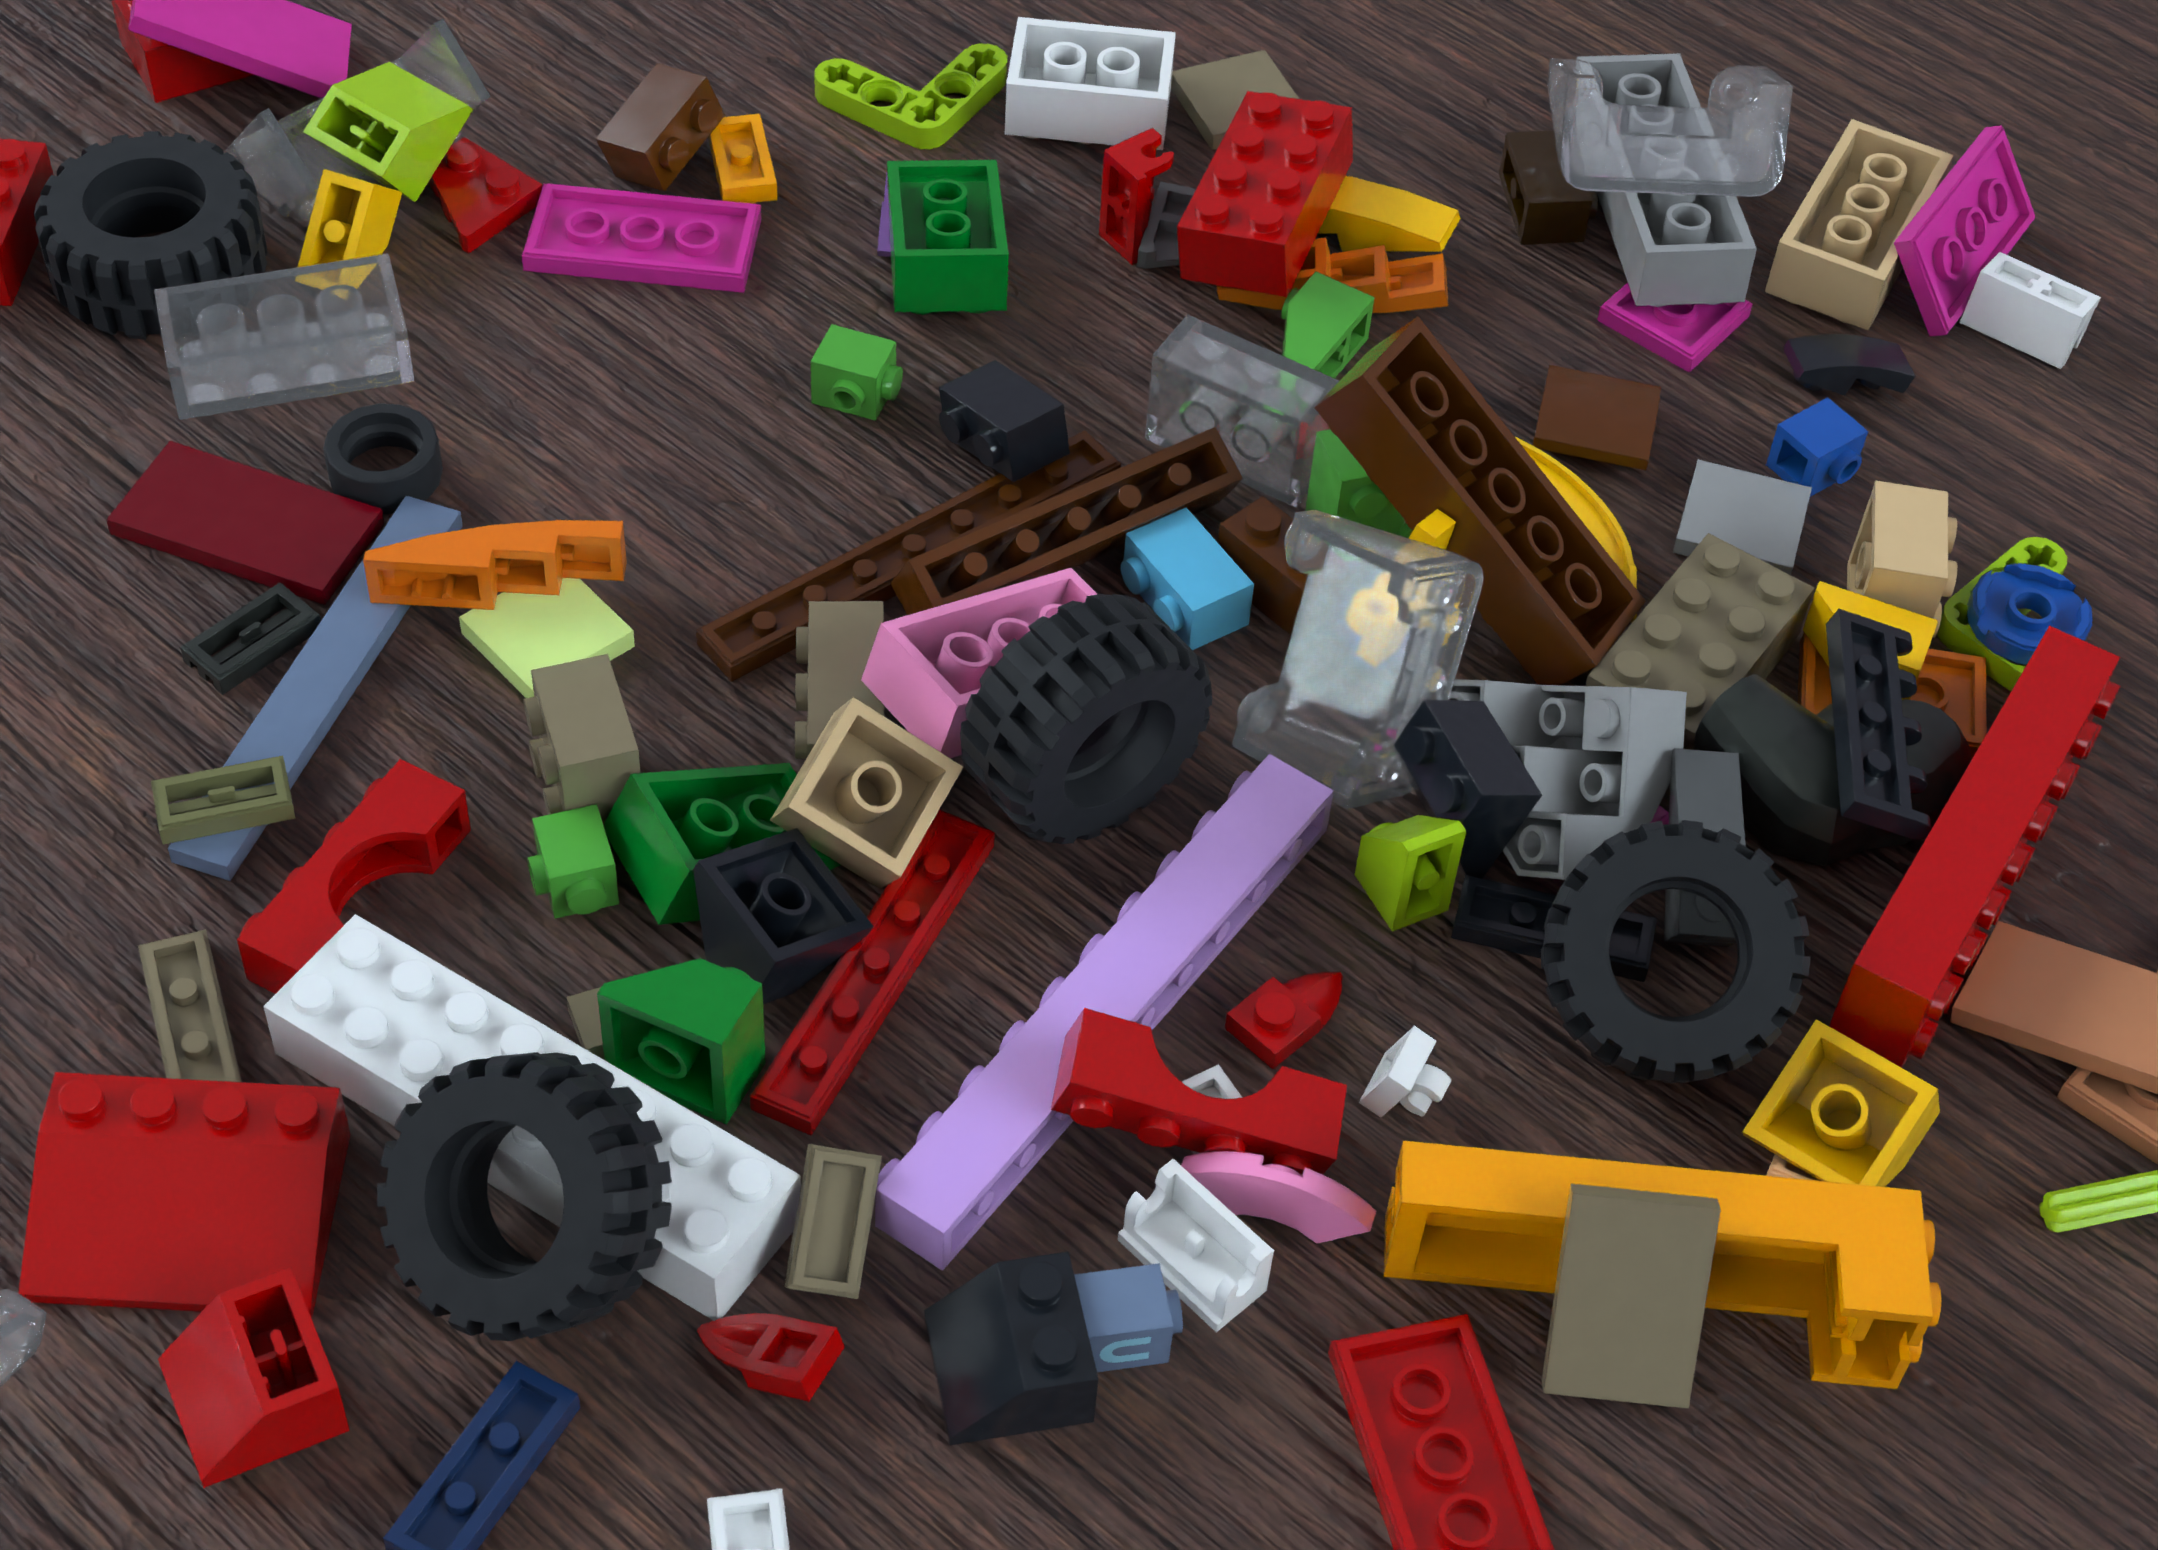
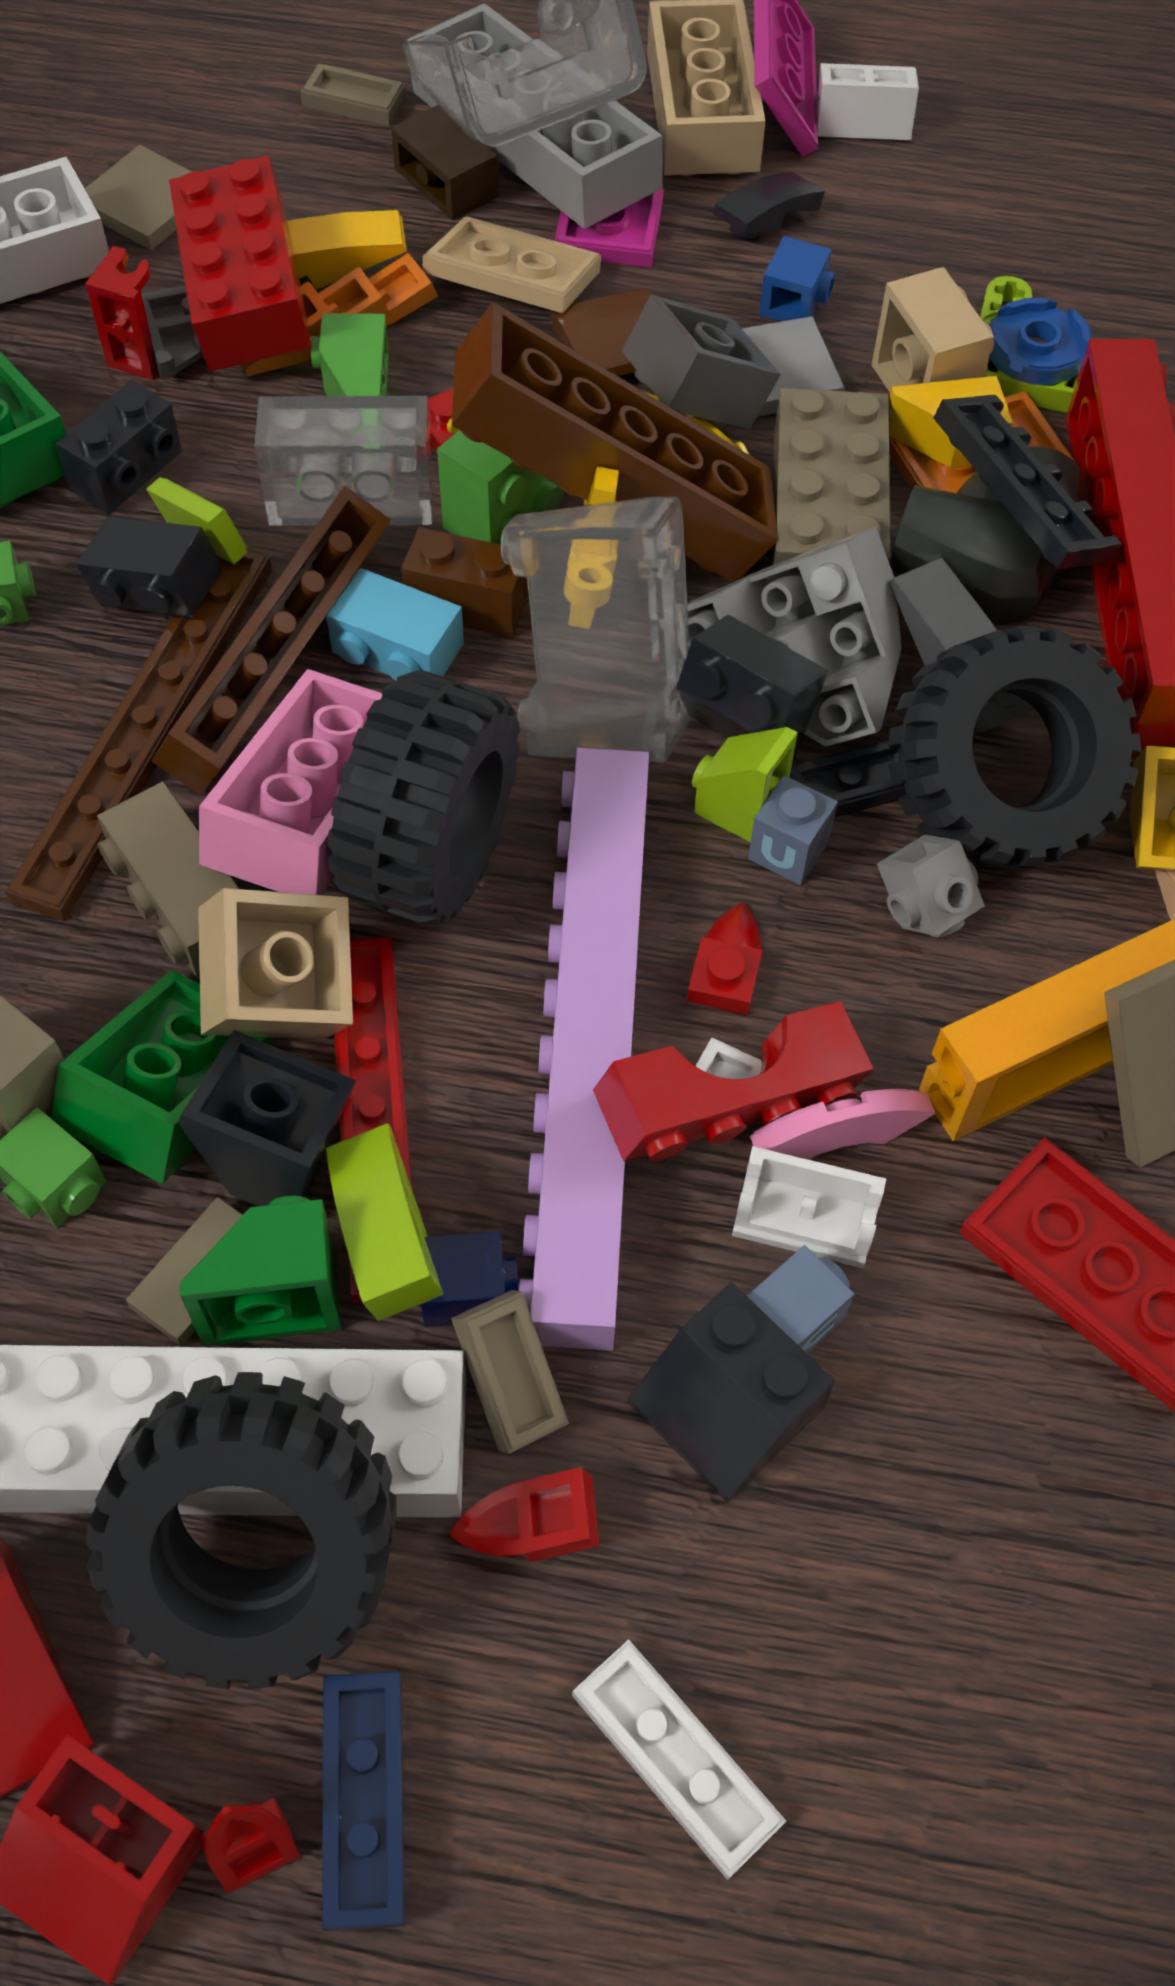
camera: 30 degrees left, 10 degrees up
(371, 1438) = (248, 1843): none -> red plate
(807, 1046) = (381, 1224): none -> lime slope
(852, 1120) = (469, 1274): none -> clear blue brick
(1052, 307) = (119, 447): none -> black brick
(1078, 401) = (188, 508): none -> lime tile
(1406, 1077) = (861, 963): white tile -> none
(1425, 928) = (792, 830): none -> sand blue brick
(1504, 87) = (353, 94): none -> dark tan tile
(1518, 1043) = (931, 886): none -> light grey brick
(1542, 308) = (512, 264): none -> tan tile
(1645, 476) = (700, 363): none -> dark grey brick

